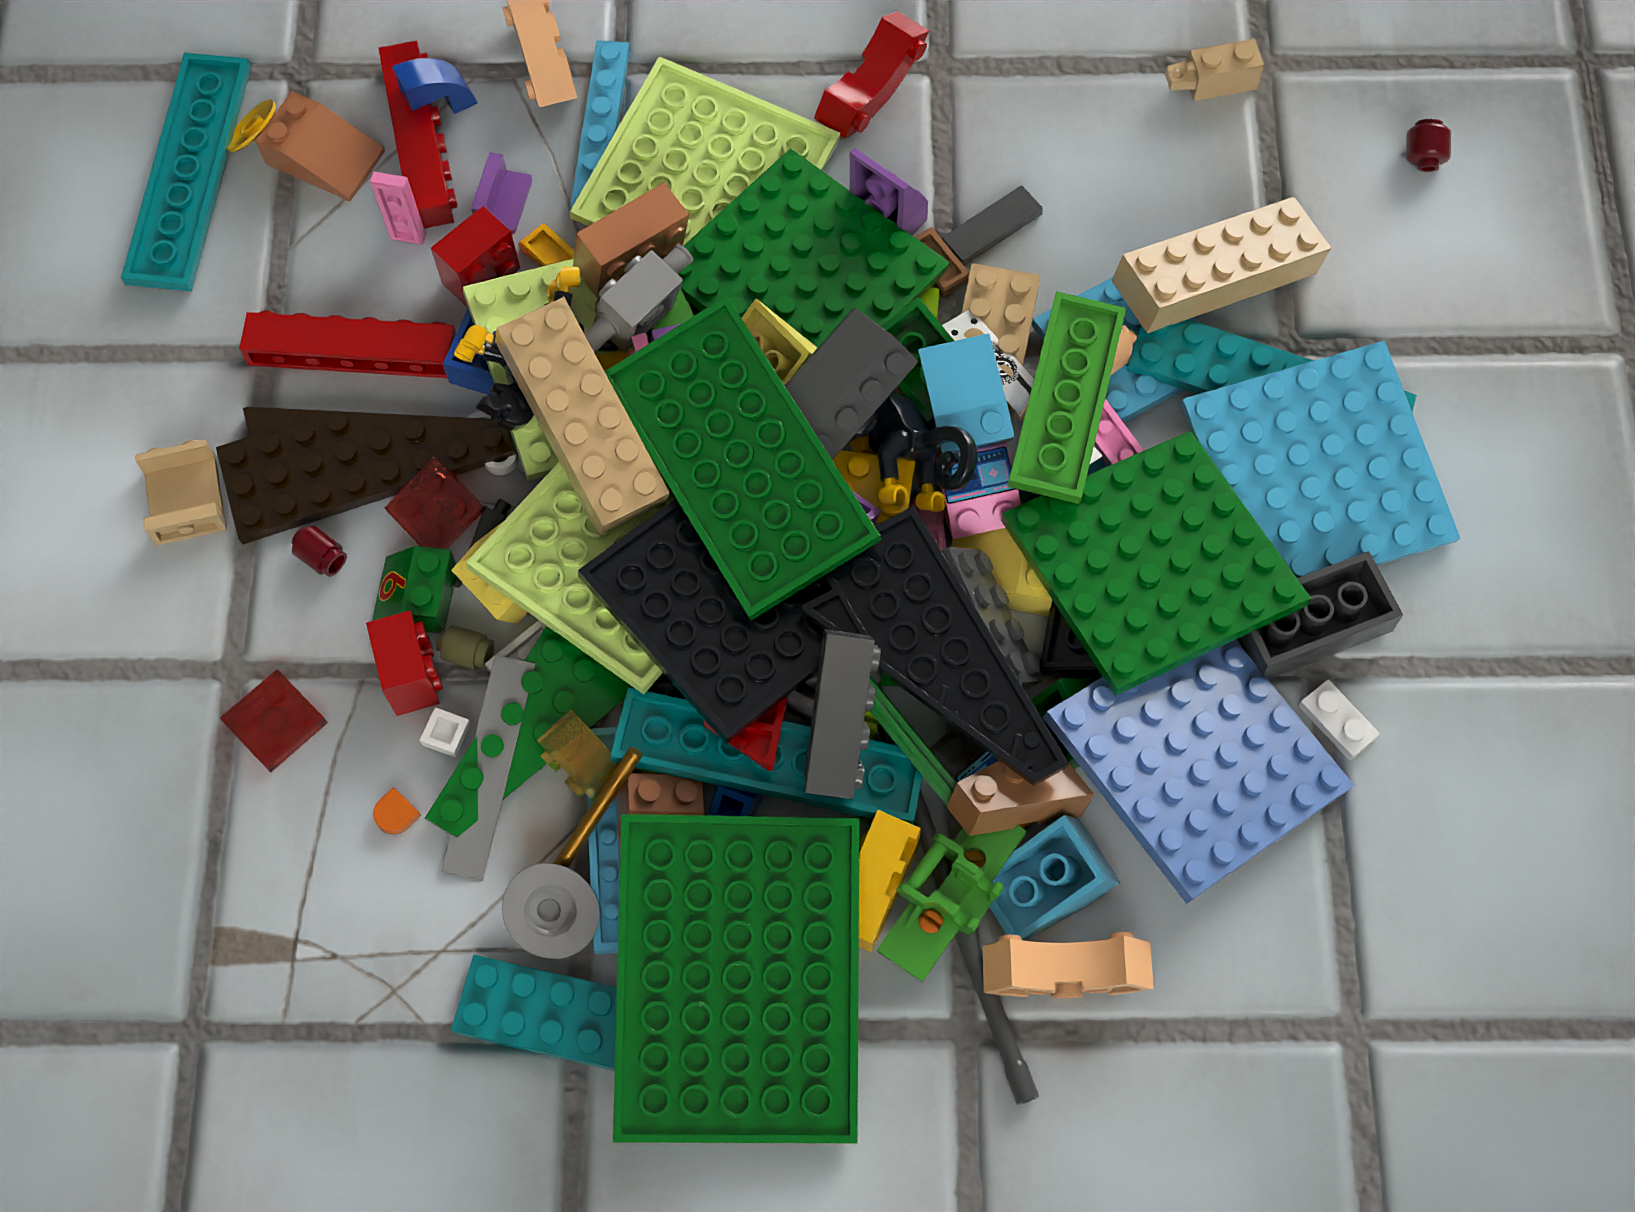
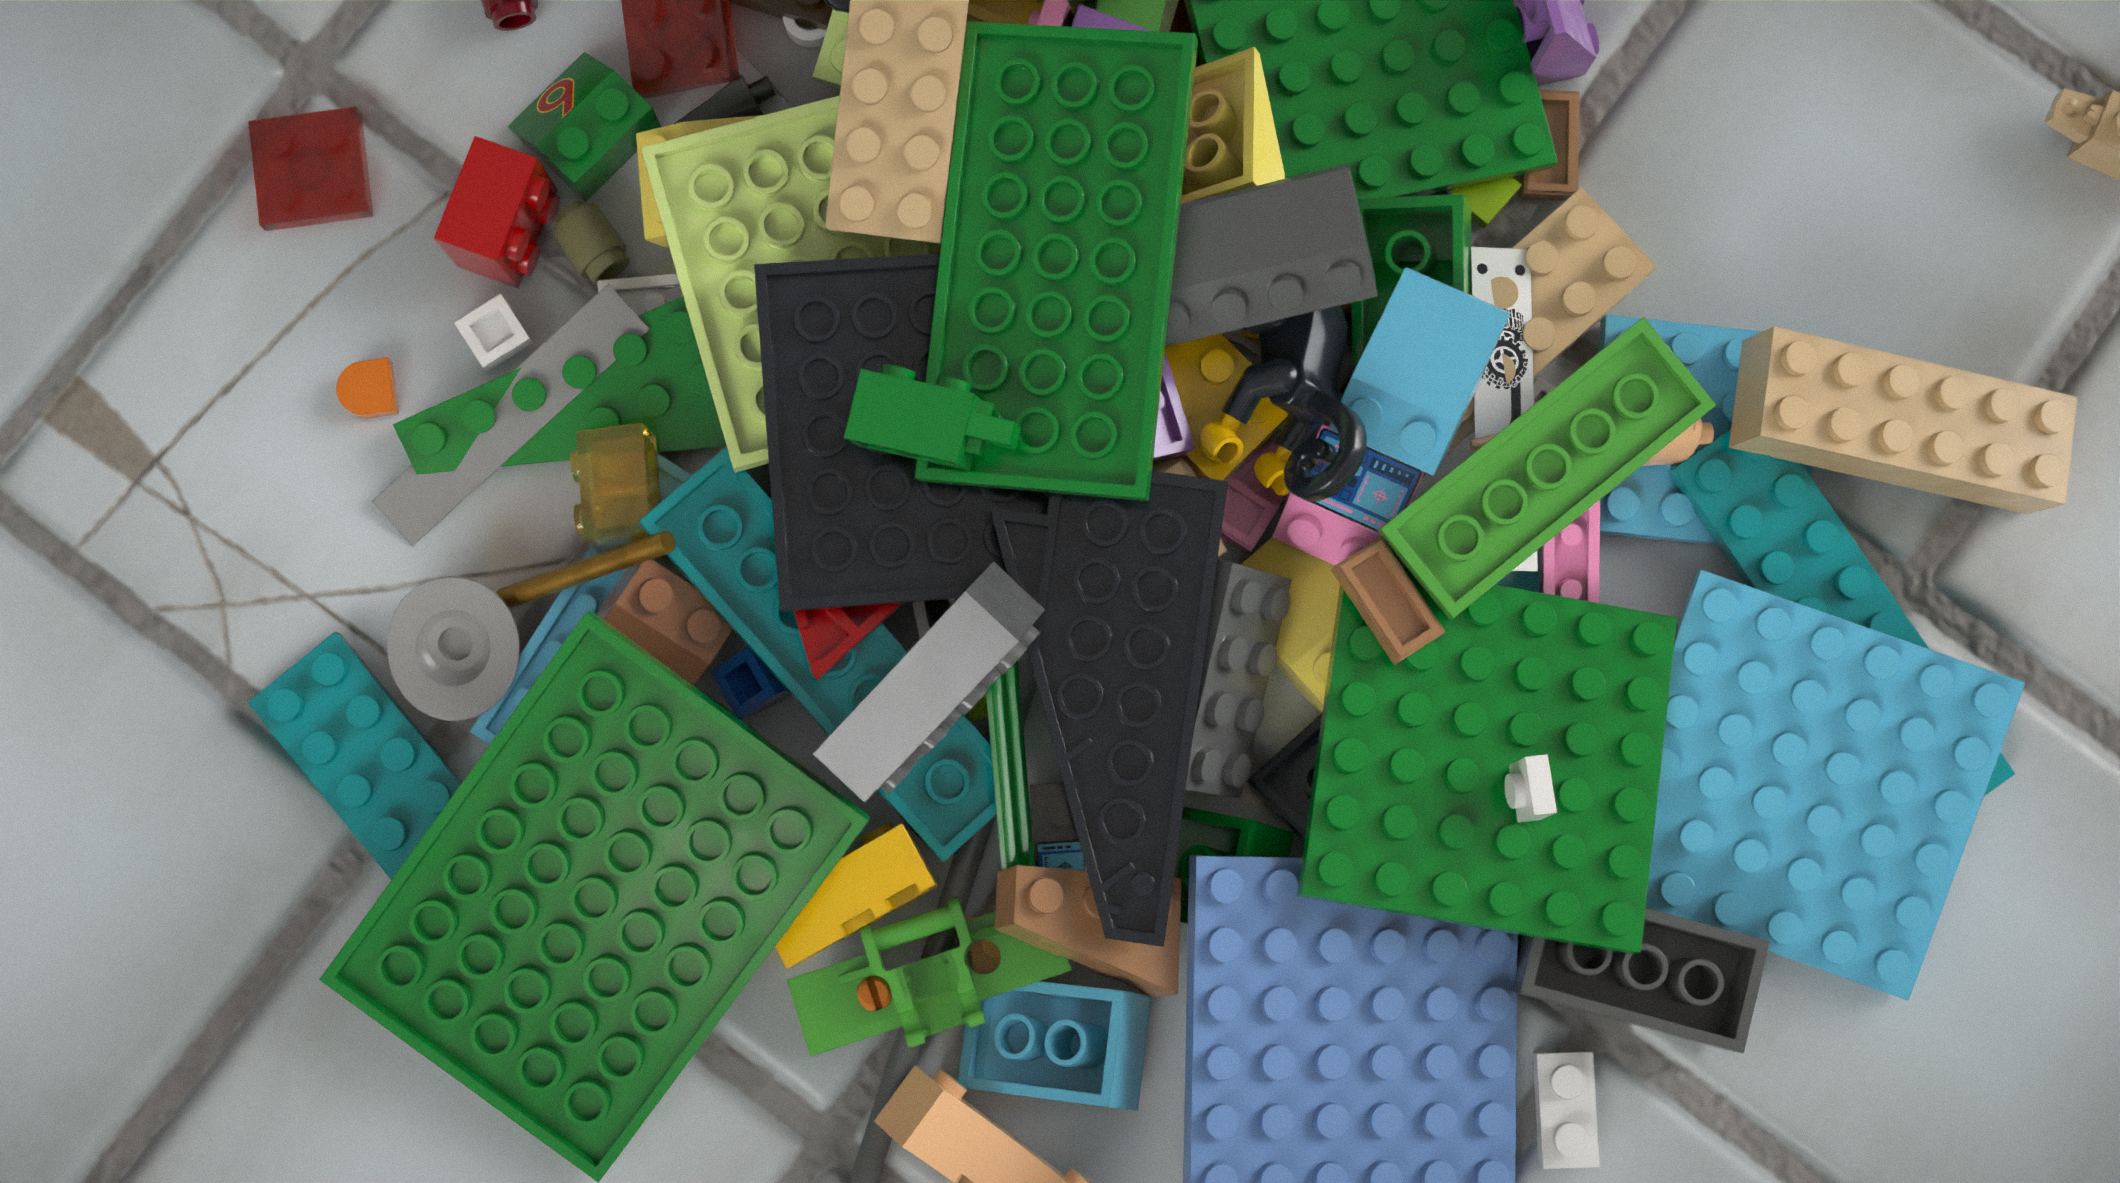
camera: 30 degrees right, 15 degrees up
(734, 577) = (924, 419): none -> green hinge
(993, 225) = (1660, 145): dark grey tile -> none
(1040, 515) = (1387, 600): none -> medium nougat tile
(1190, 551) = (1530, 788): none -> white plate

